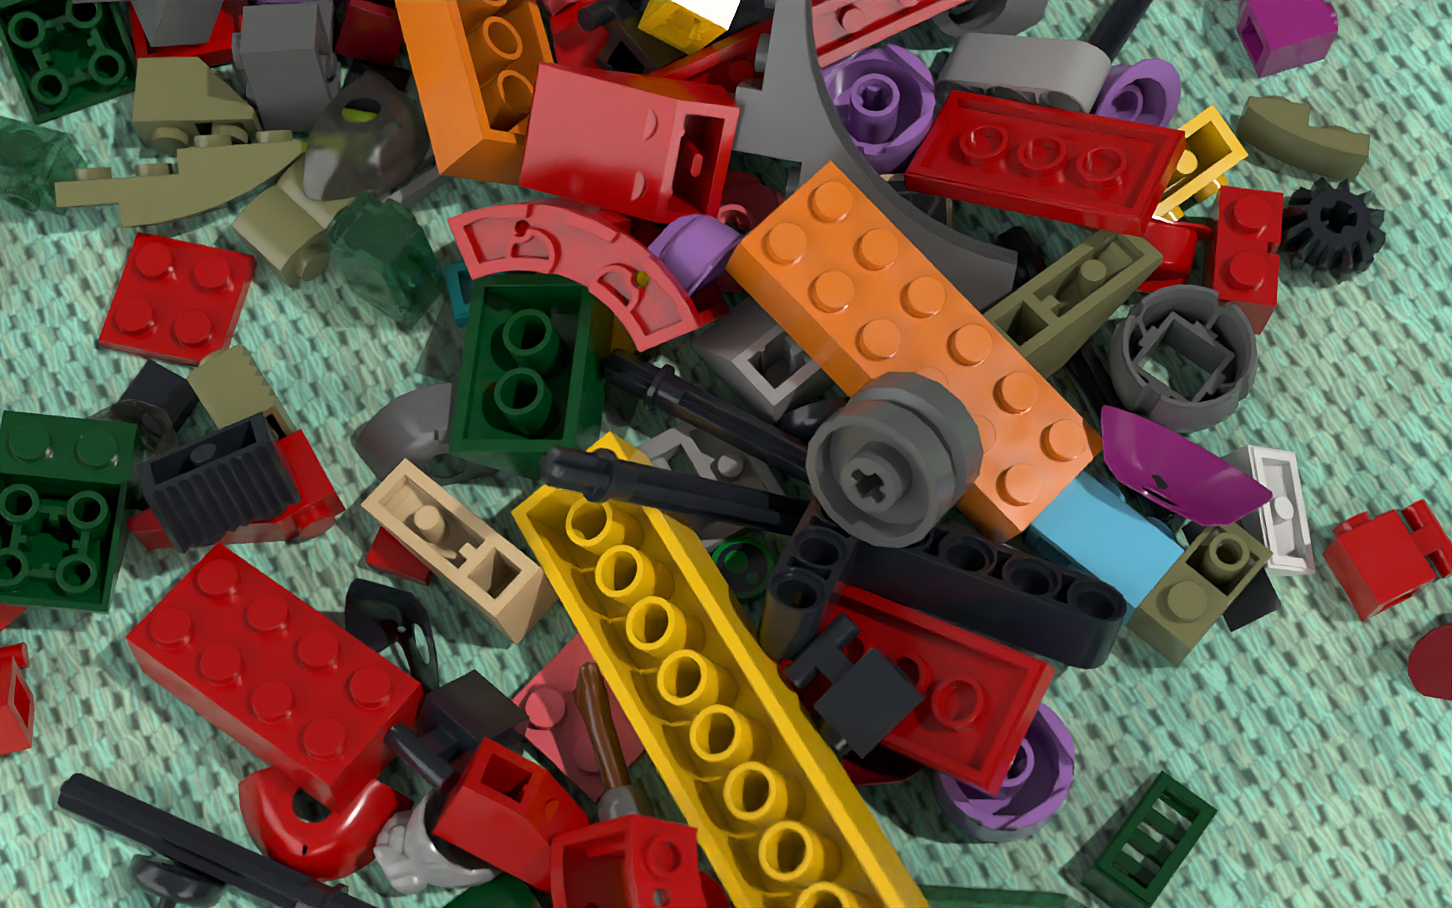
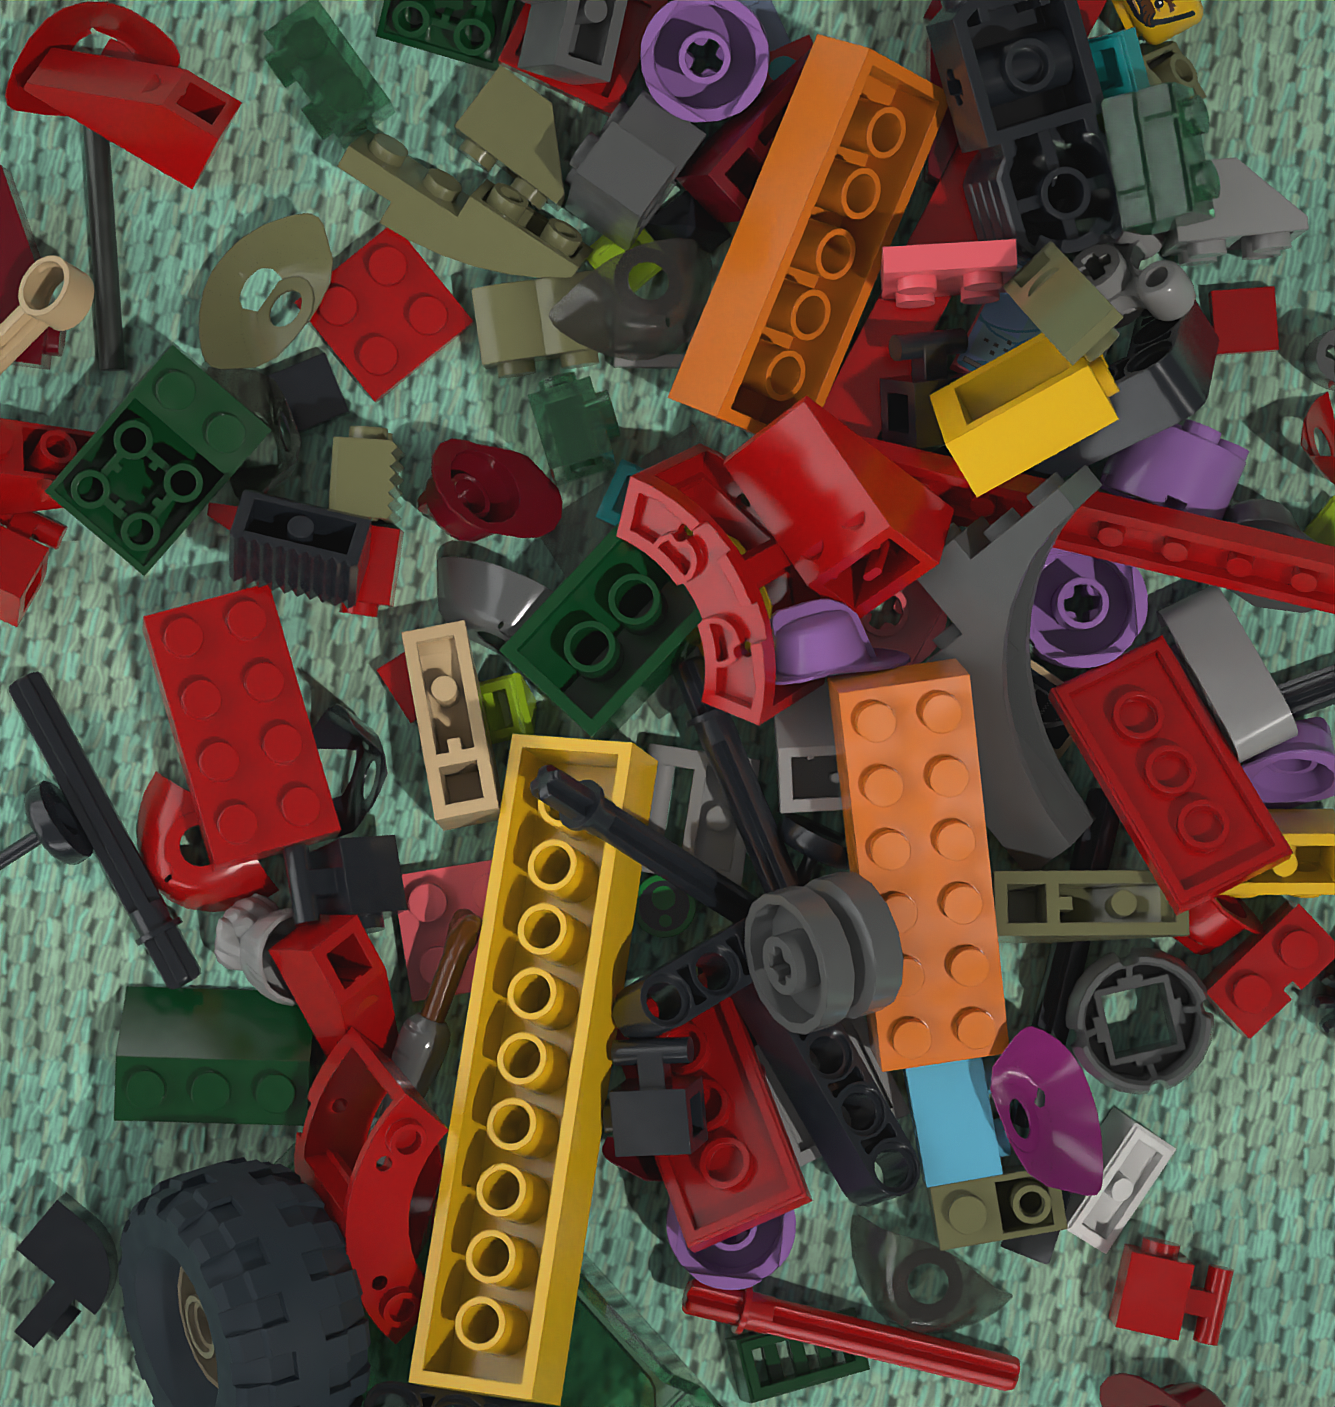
camera: 30 degrees right, 20 degrees up
(65, 303) = (247, 338): none -> olive piece
(351, 365) = (488, 492): none -> dark red piece
(493, 505) = (508, 707): none -> lime slope
(1080, 828) = (850, 1335): none -> red axle
(1156, 714) = (883, 1269): none -> clear smoke piece

